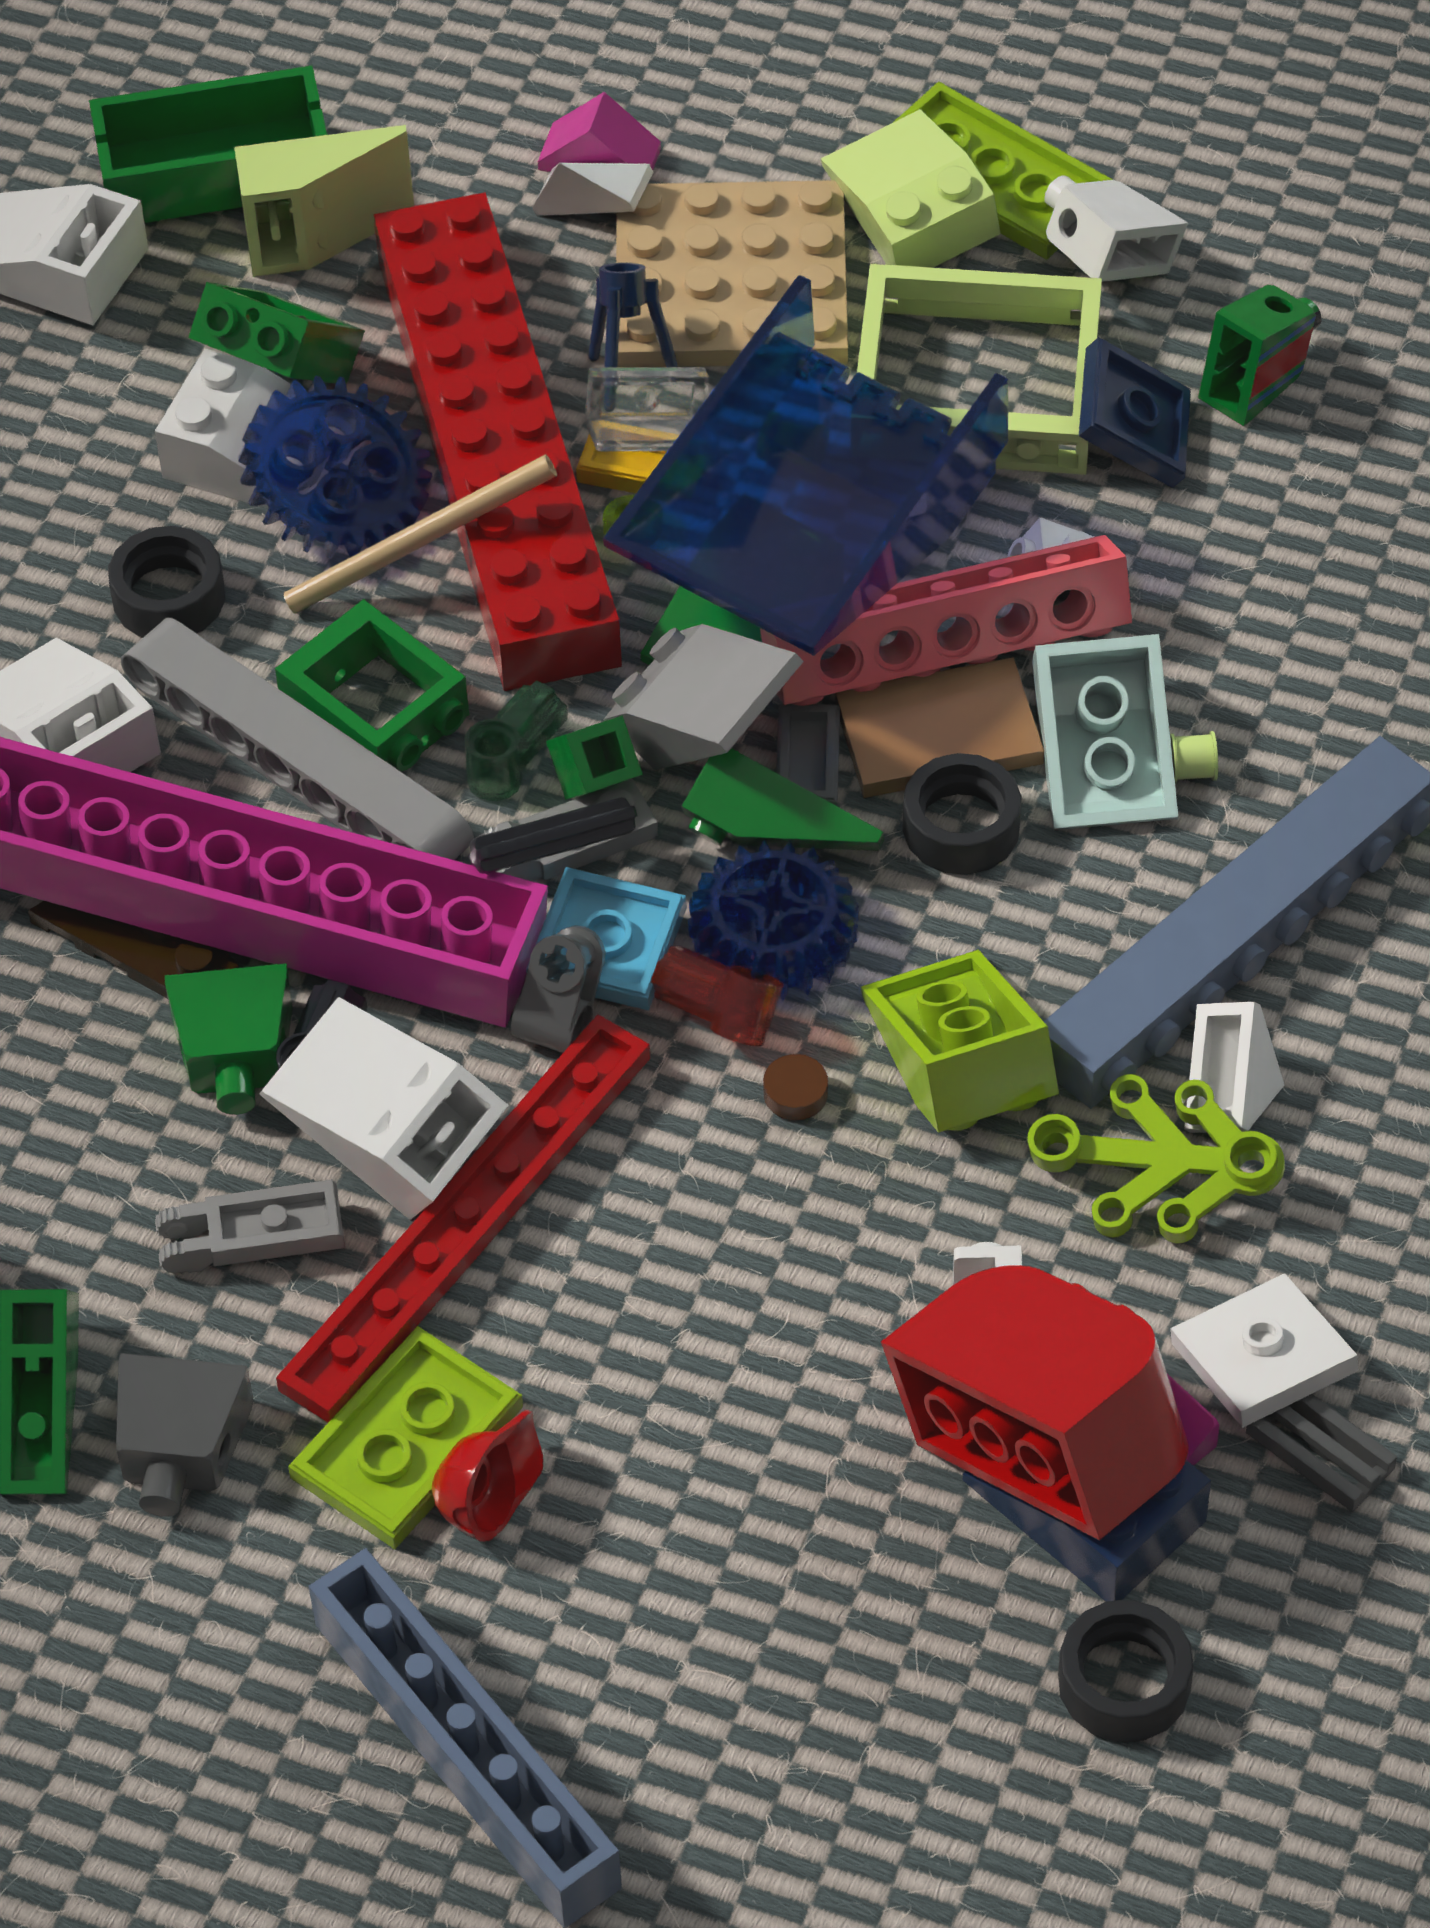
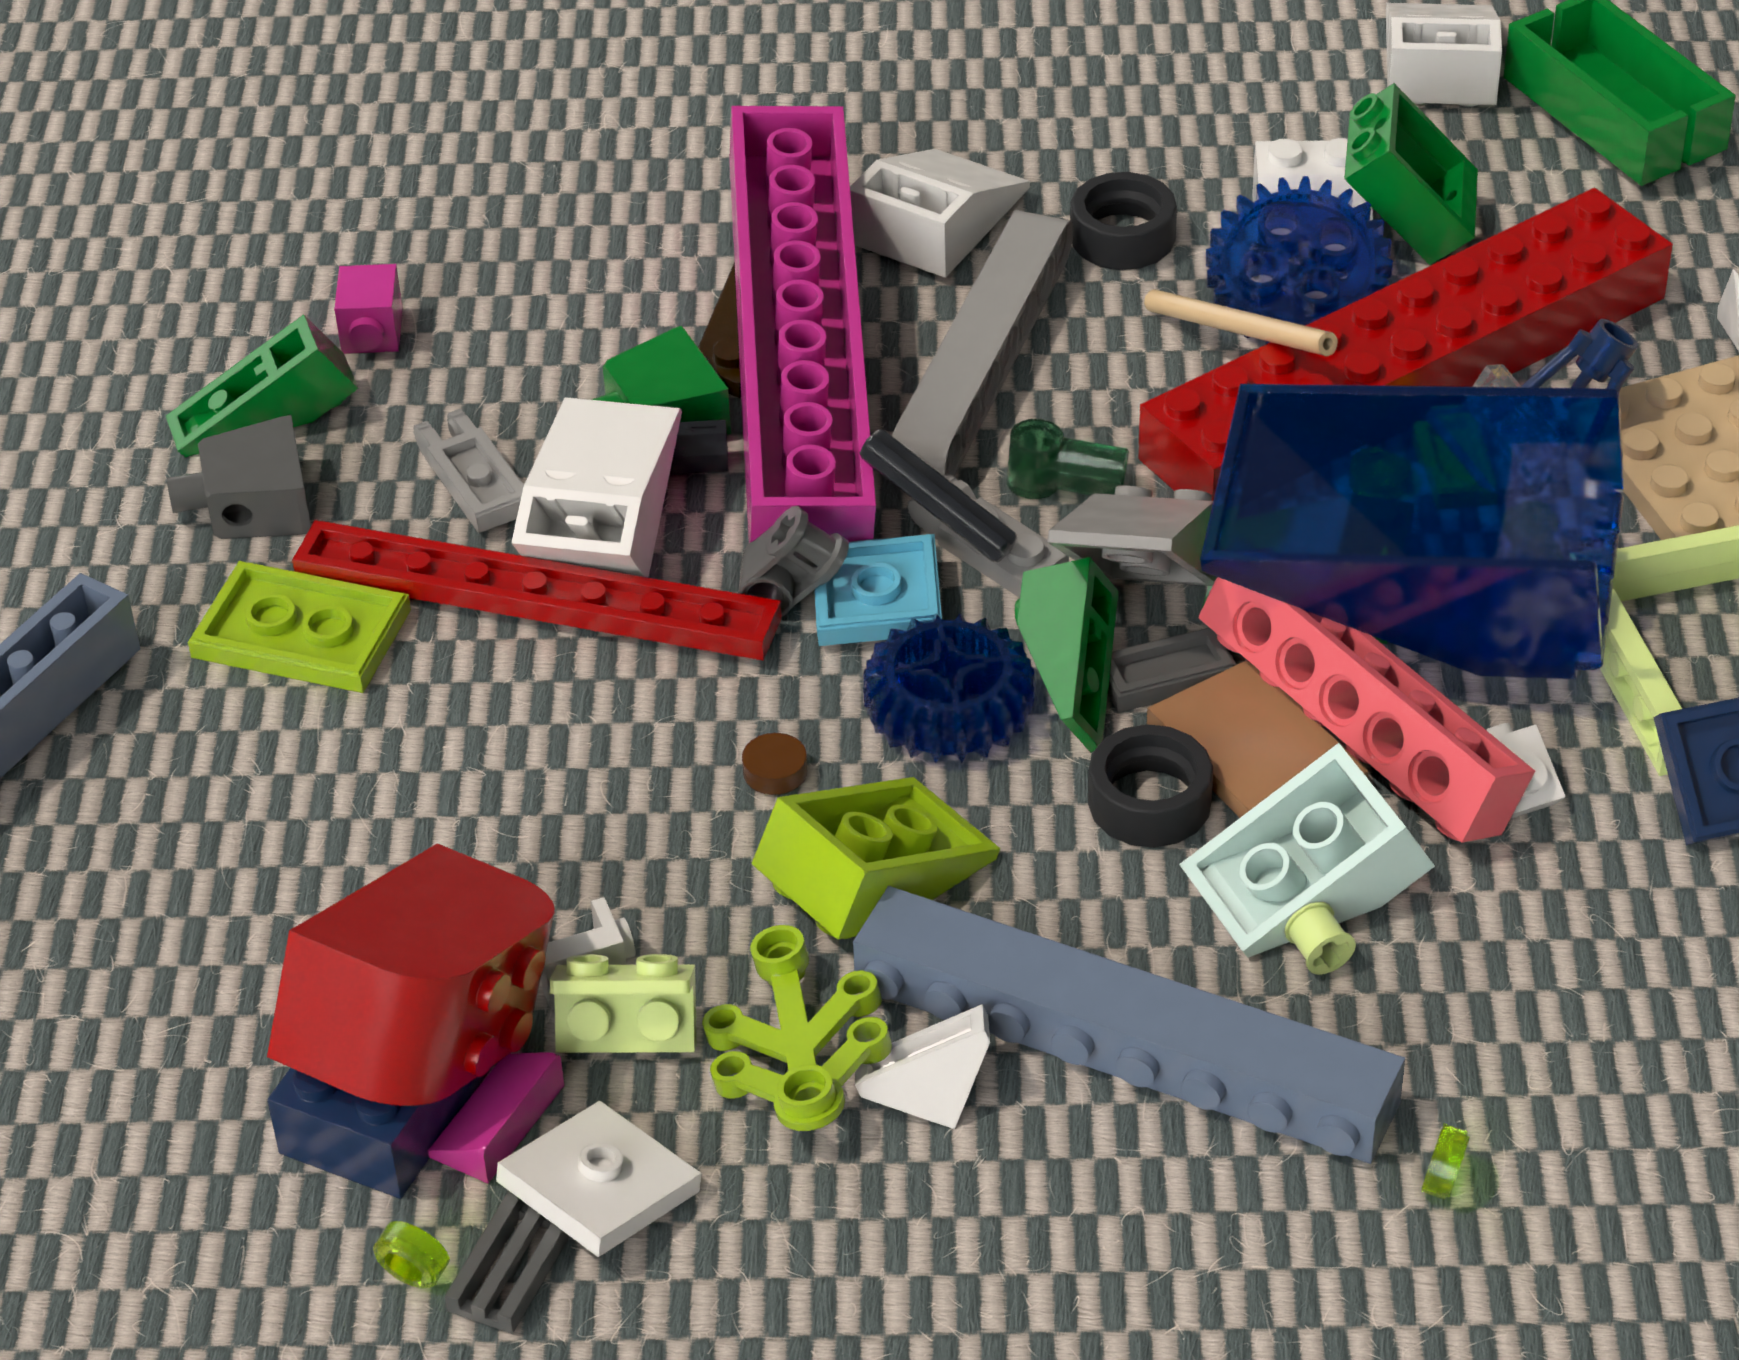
camera: 70 degrees right, 10 degrees down
(319, 194) = (1588, 137): yellowish green slope -> none
(348, 647) = (1080, 331): green window -> none
(488, 1477) = (264, 685): red cap -> none
(594, 757) = (1047, 498): green brick -> none
(723, 995) = (838, 674): clear red piece -> none
(1090, 1244) = (624, 1005): none -> yellowish green bracket
(1122, 1622) = (202, 1204): black tyre -> none
(1302, 1514) = (411, 1254): none -> clear neon green tile

